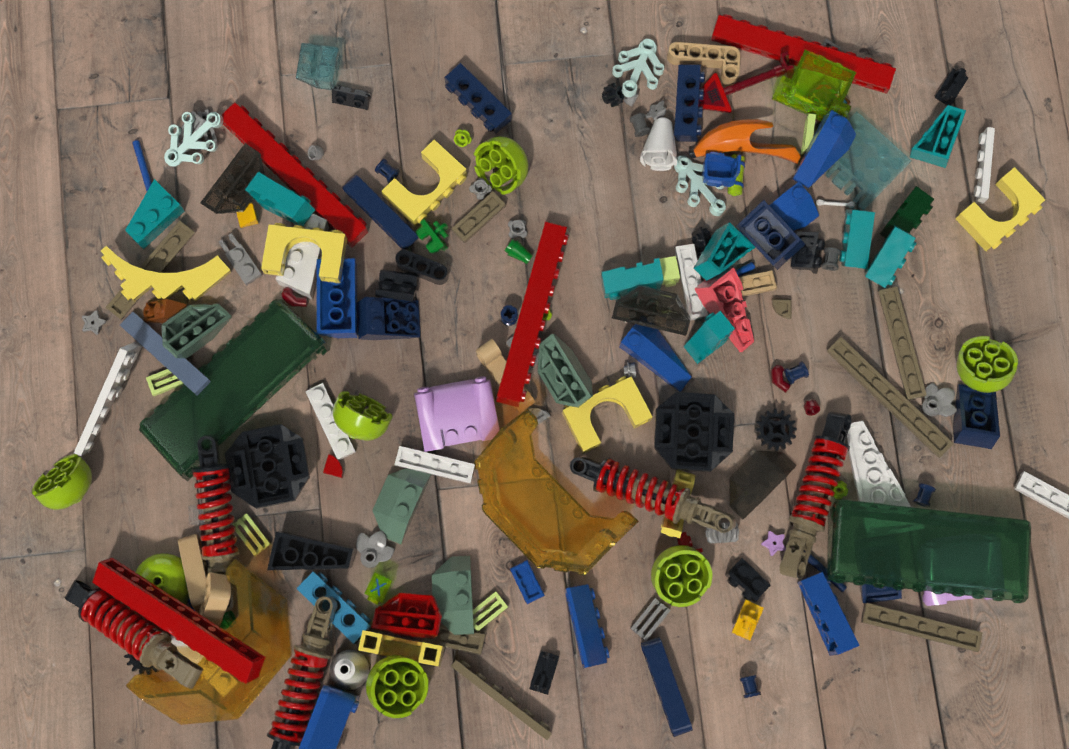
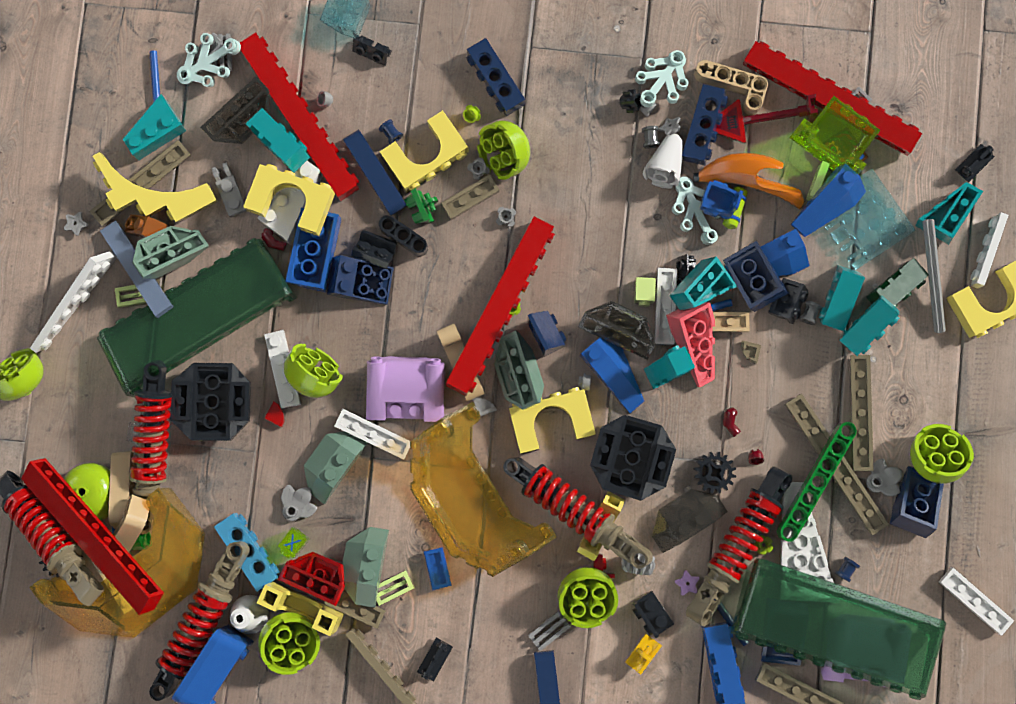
camera: 20 degrees right, 5 degrees up
(240, 521) = (175, 464): yellowish green tile -> none
(247, 217) = (246, 150): yellow slope -> none
(306, 553) = (232, 494): black wedge -> none
(513, 311) = (473, 298): dark blue bush -> none
(518, 251) = (501, 240): green cone -> none
(581, 330) = (545, 332): none -> dark blue slope
(585, 625) = (484, 625): blue slope -> none
(623, 280) = (600, 291): teal wedge -> none
(796, 372) = (748, 420): dark blue bush -> none
(851, 205) = (844, 262): white hinge -> none
(881, 409) = (824, 476): none -> green beam
(939, 199) = (934, 275): none -> light grey axle

